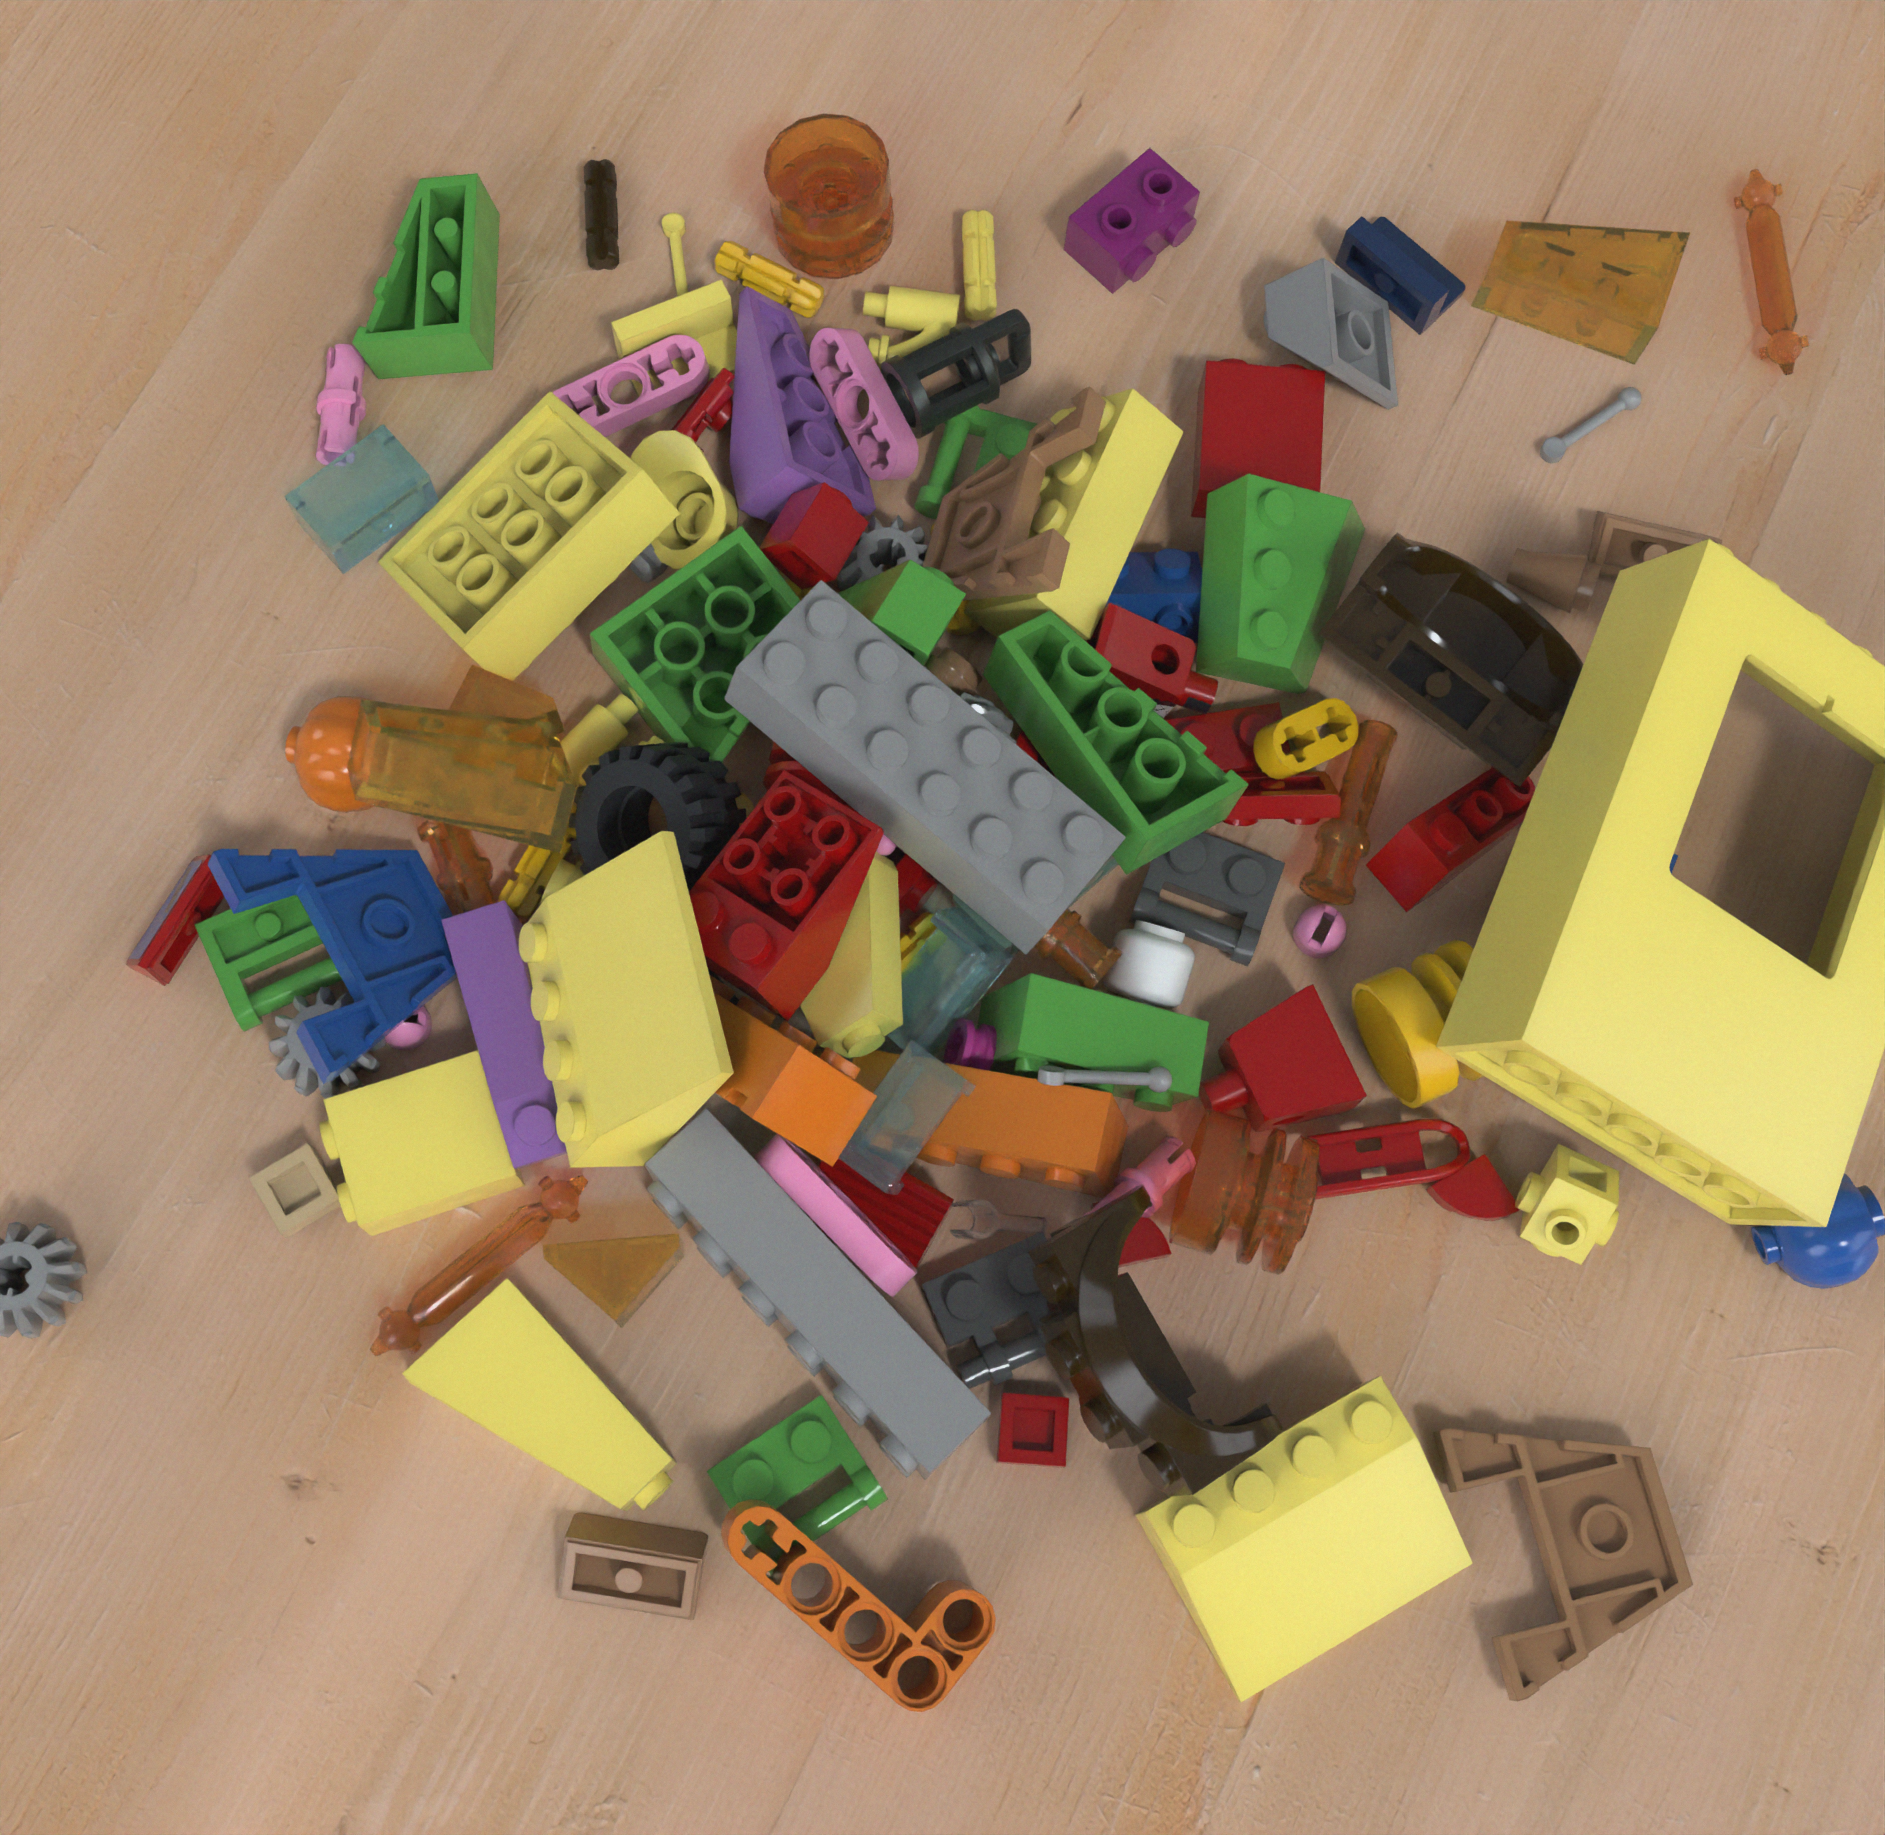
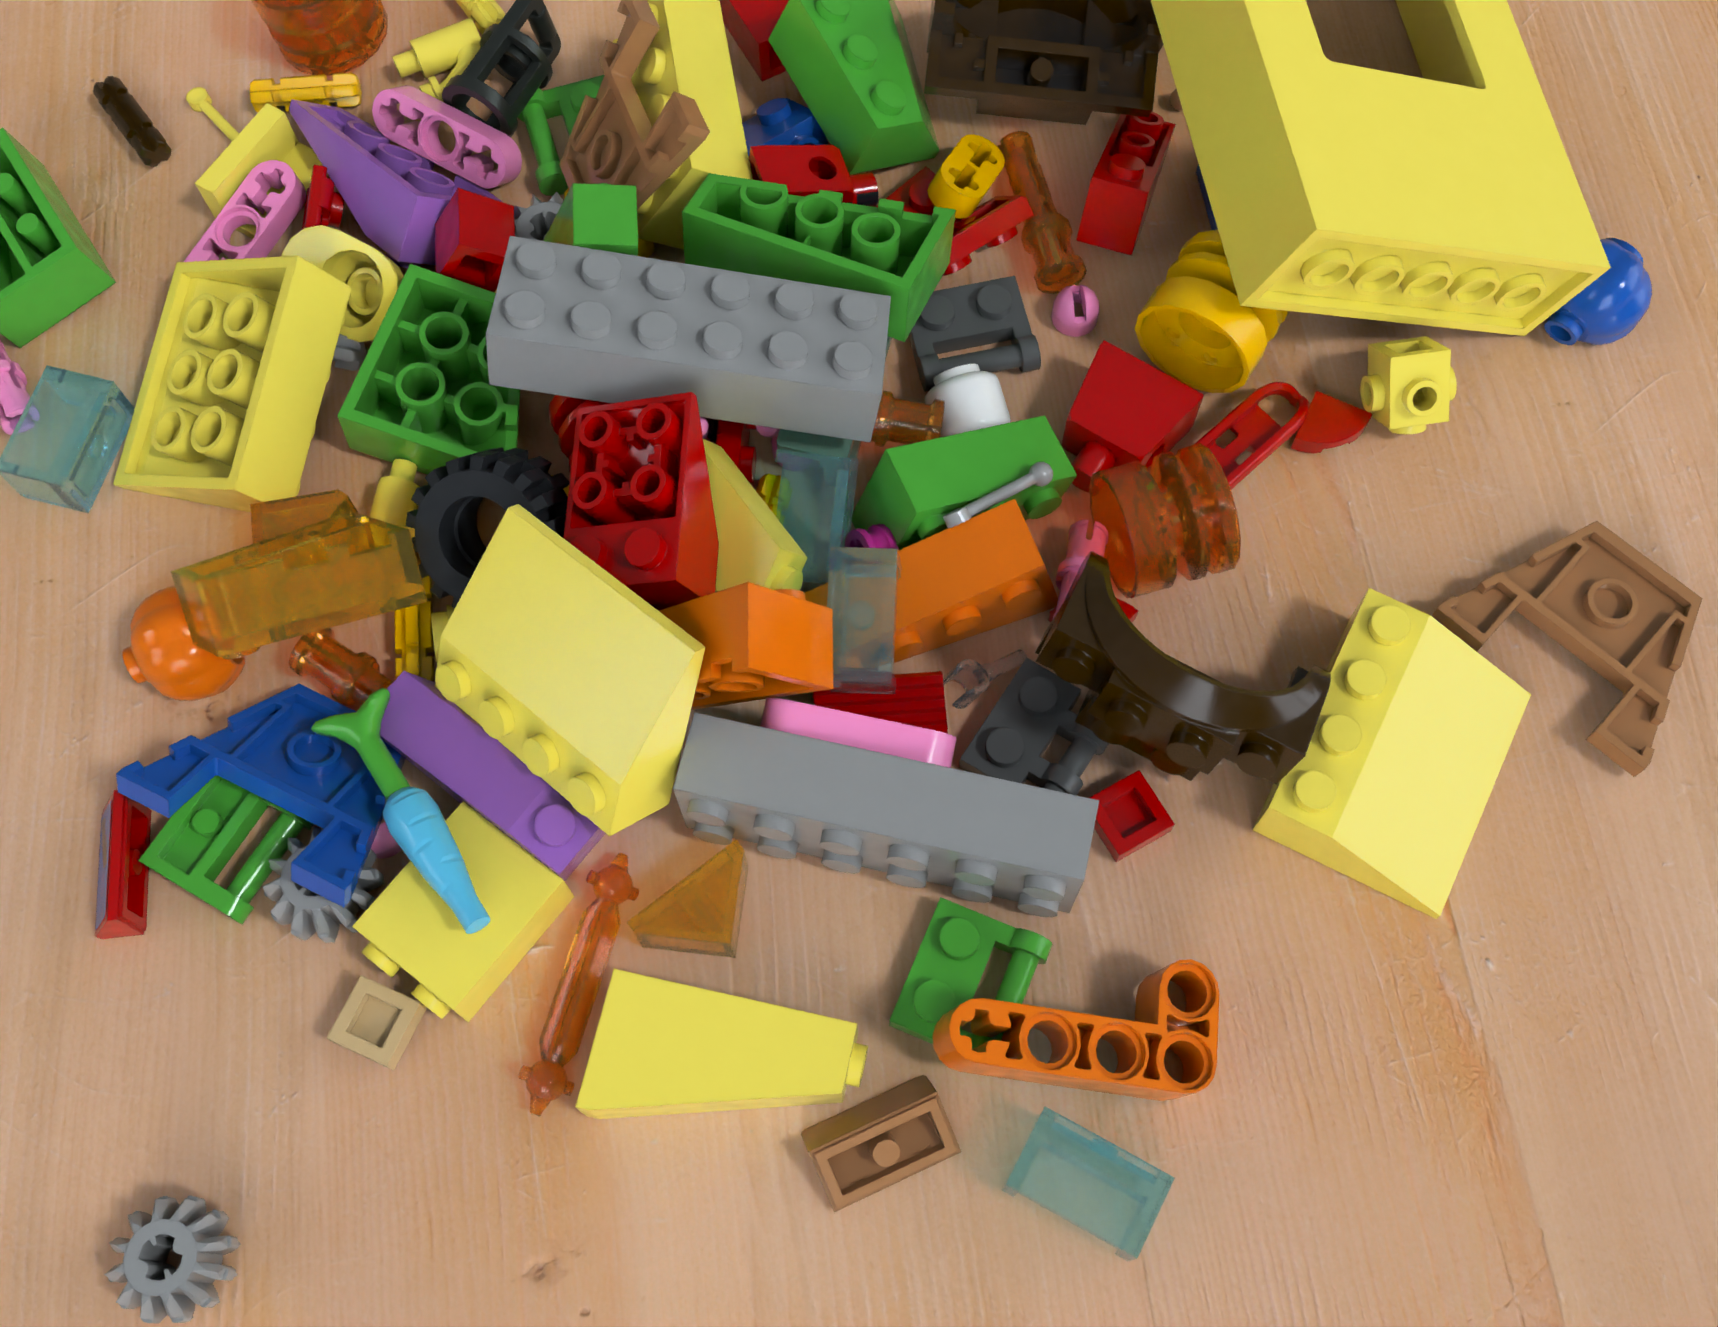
camera: 25 degrees left, 5 degrees down
(427, 1034) = (409, 811): none -> medium azure piece
(771, 1721) = (1089, 1182): none -> clear light blue panel

